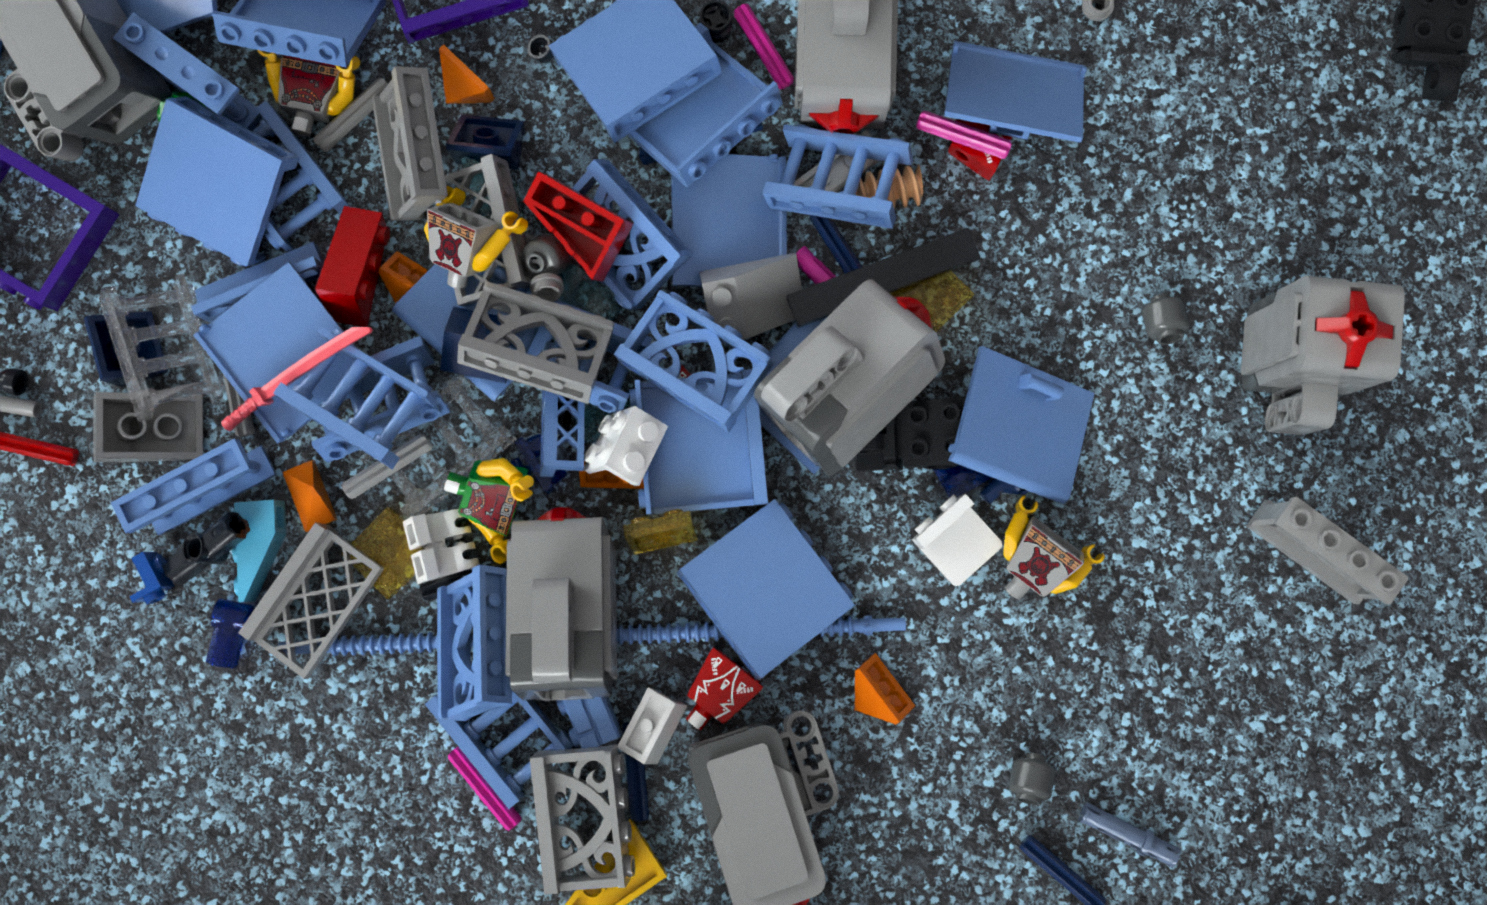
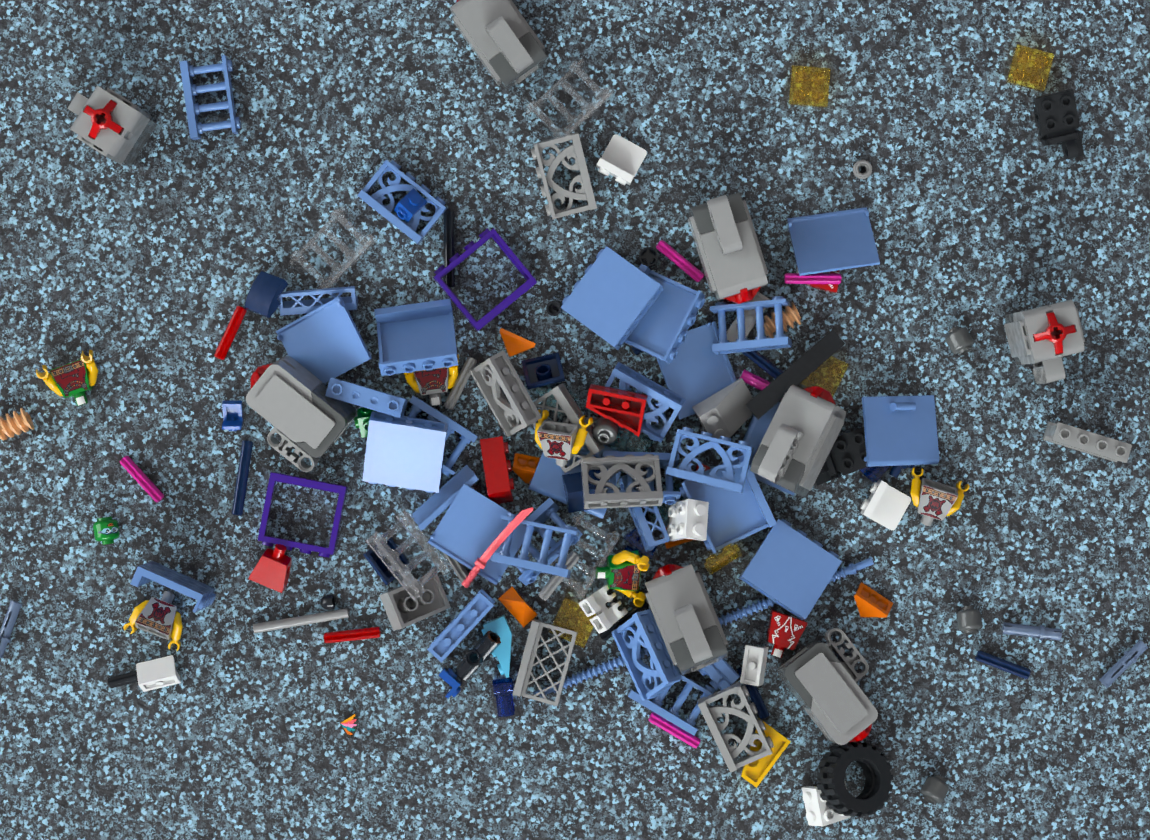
camera: 25 degrees left, 5 degrees up
(547, 286) = (614, 448): light grey plate -> none

